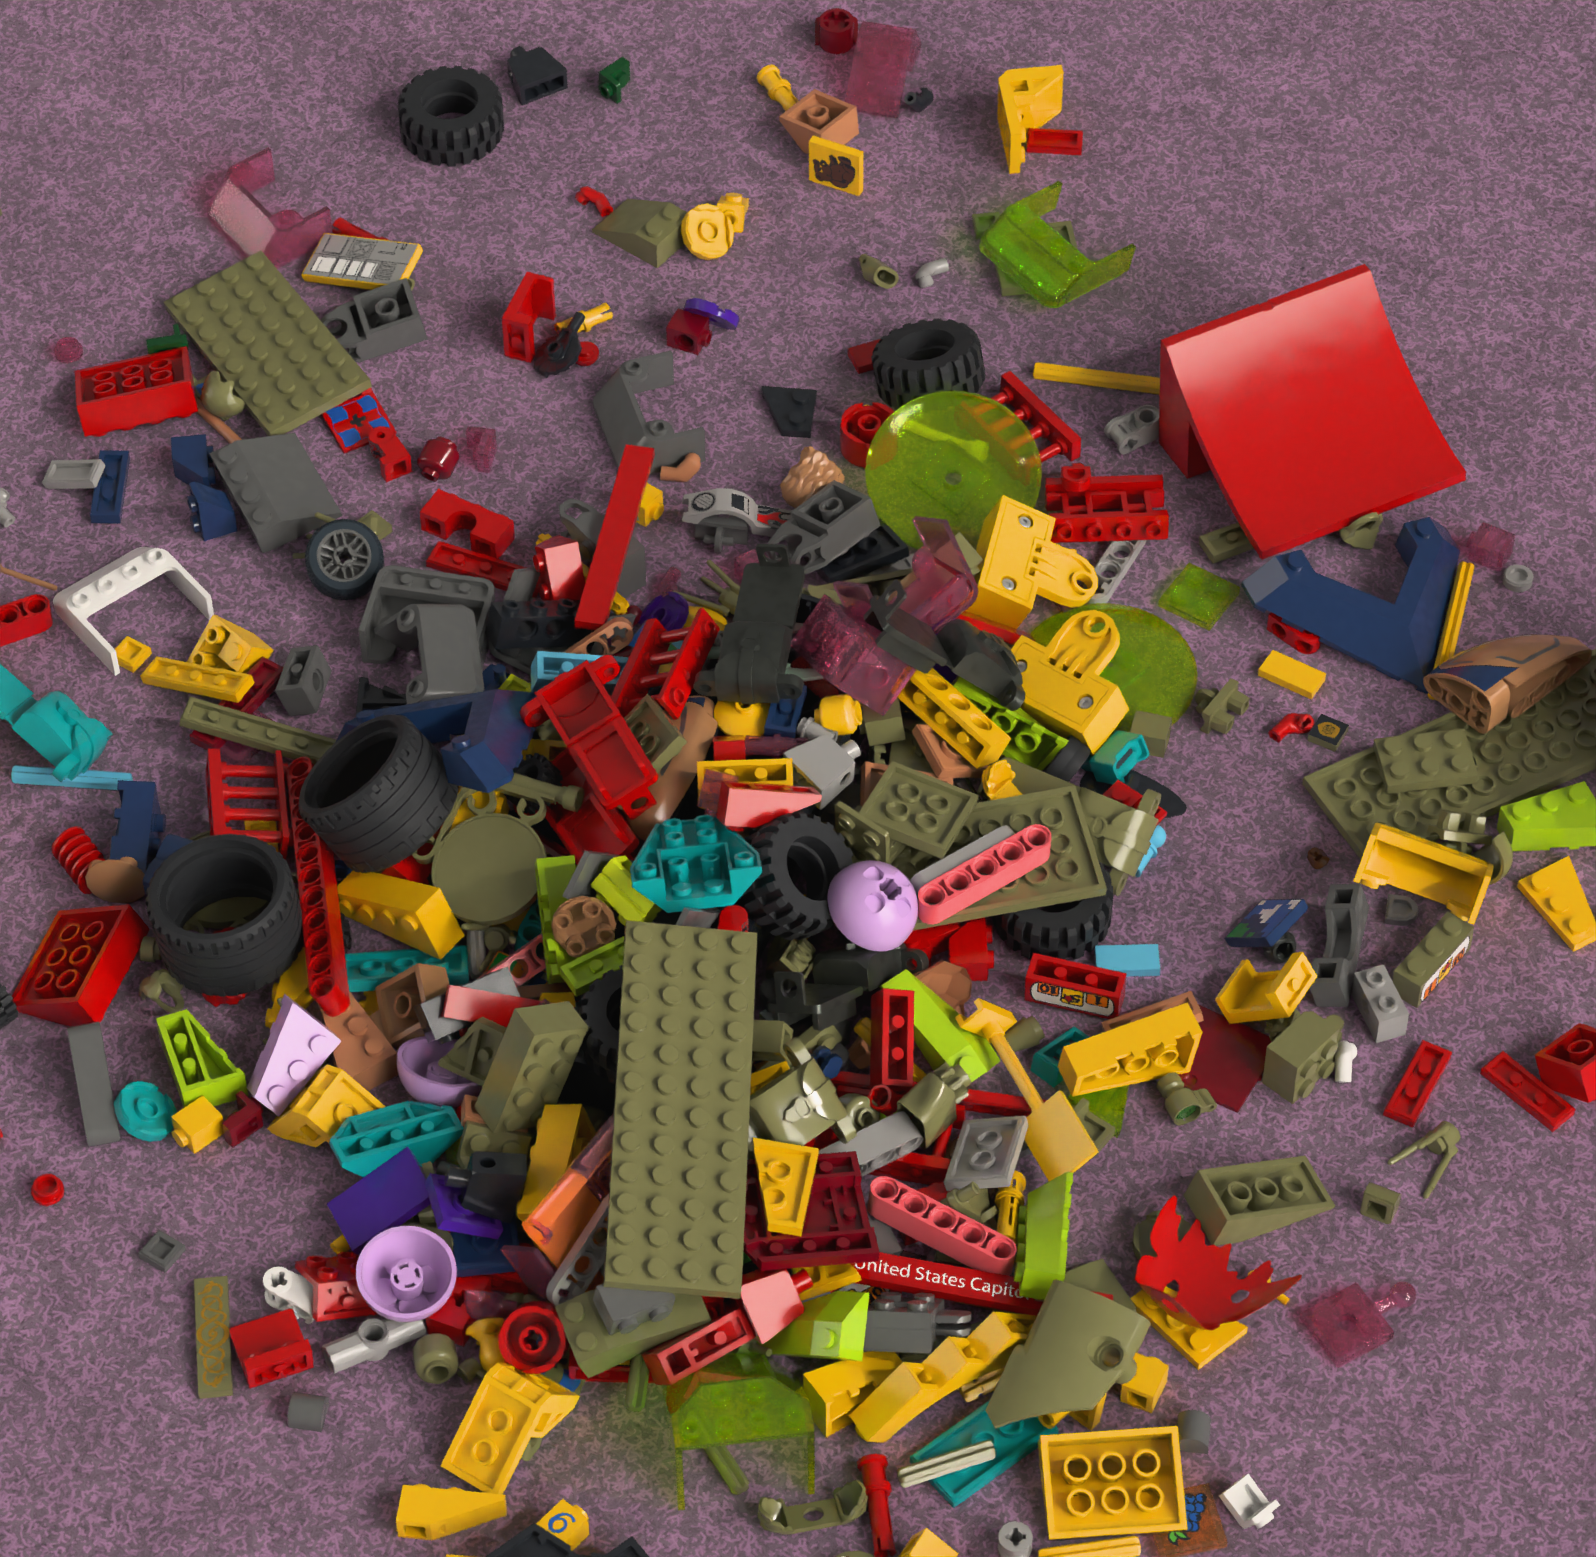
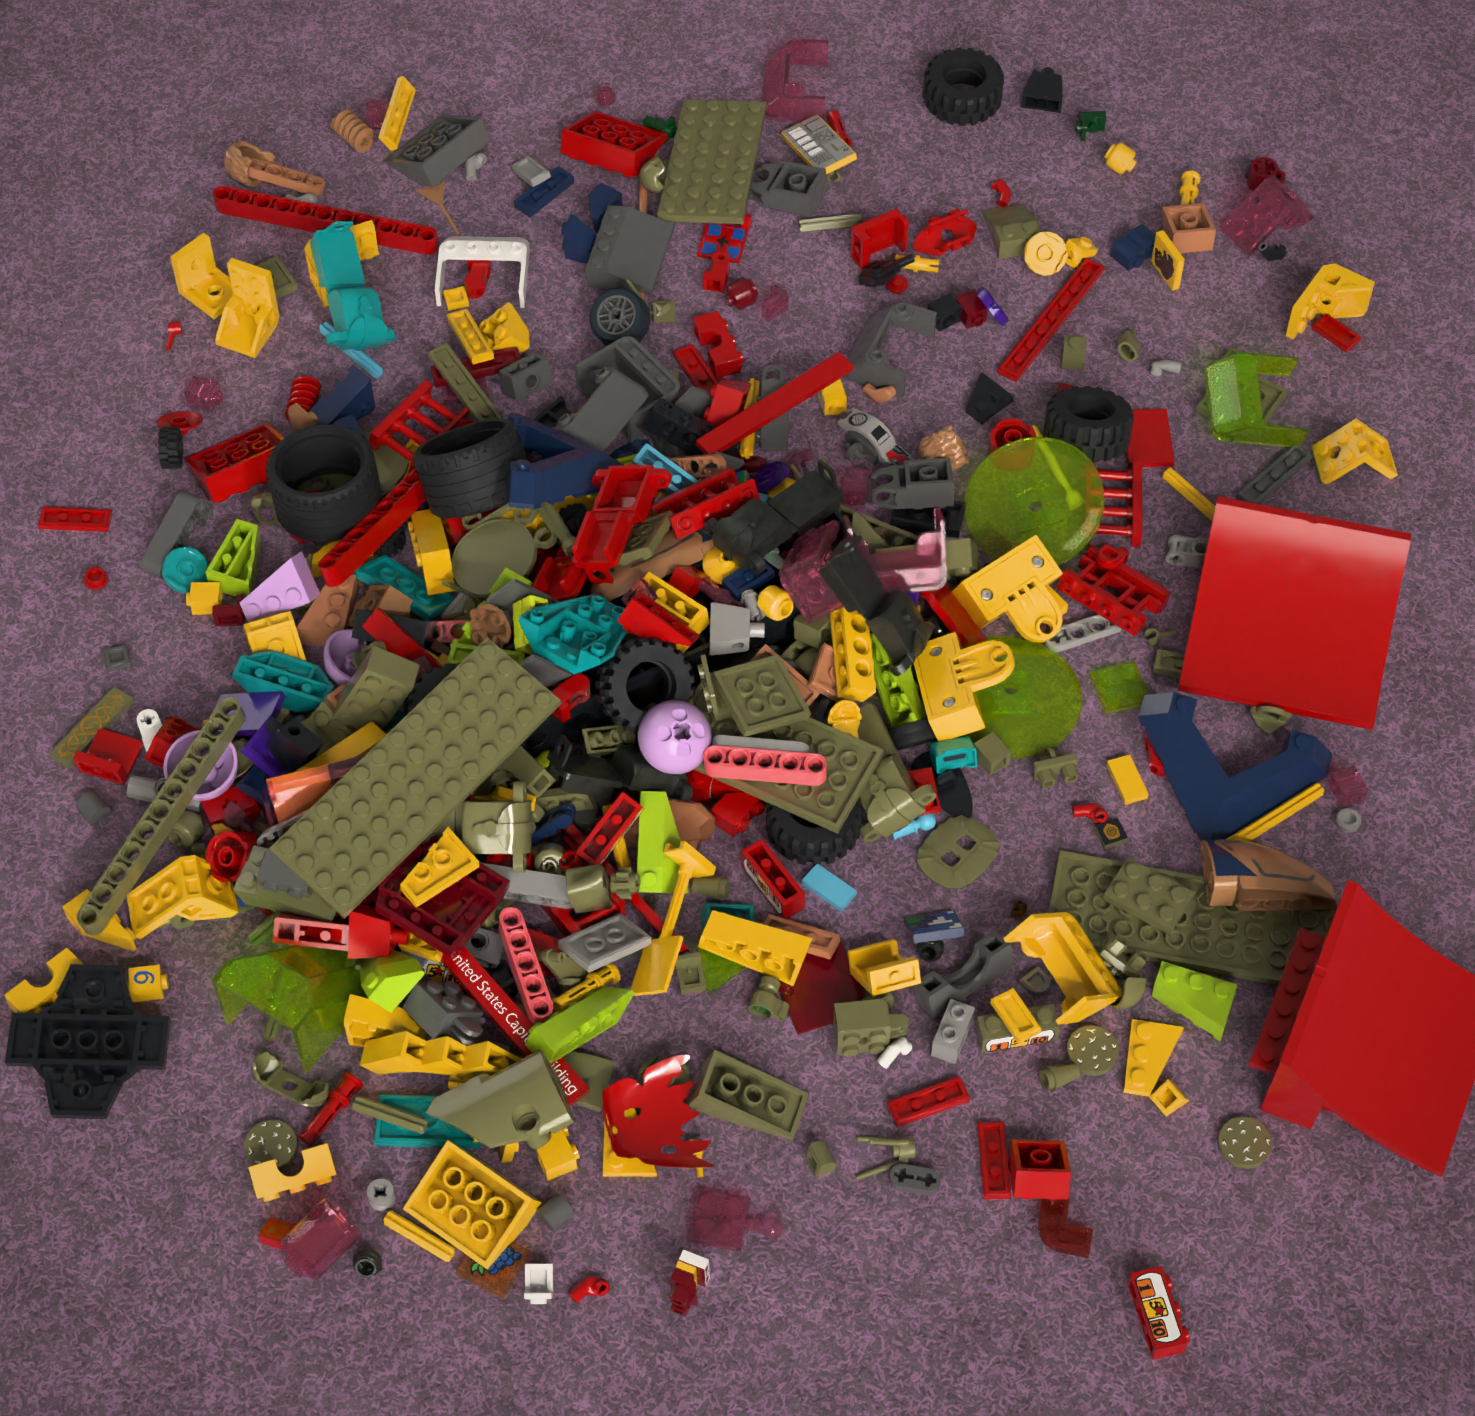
camera: 40 degrees right, 5 degrees up
(134, 616) = (477, 277): none -> red leg
(424, 1361) = (161, 826): none -> olive beam
(450, 334) = (830, 222): none -> olive axle
(575, 291) = (930, 240): none -> red piece
(667, 340) = (948, 311): none -> black brick
(680, 96) = (1120, 158): none -> yellow head
(773, 295) = (1050, 320): none -> red tile
(785, 174) = (1133, 248): none -> dark blue brick
(834, 310) = (1074, 352): none -> olive brick
(998, 349) = (1150, 439): none -> red tile
(1136, 311) = (1275, 475): none -> dark grey tile
(1183, 525) = (1157, 636): none -> olive hand
(1197, 234) = (1357, 445): none -> yellow bracket
(1233, 843) = (972, 862): none -> olive piece
(1295, 1472) = (589, 1286): none -> red arm
(1384, 1394) = (688, 1273): none -> dark red hips
(1431, 942) = (1015, 1015): none -> yellow tile
(1477, 1156) = (914, 1179): none -> dark grey beam
(1507, 977) = (1056, 1076): none -> olive cone
(1511, 933) = (1093, 1050): none -> olive tile

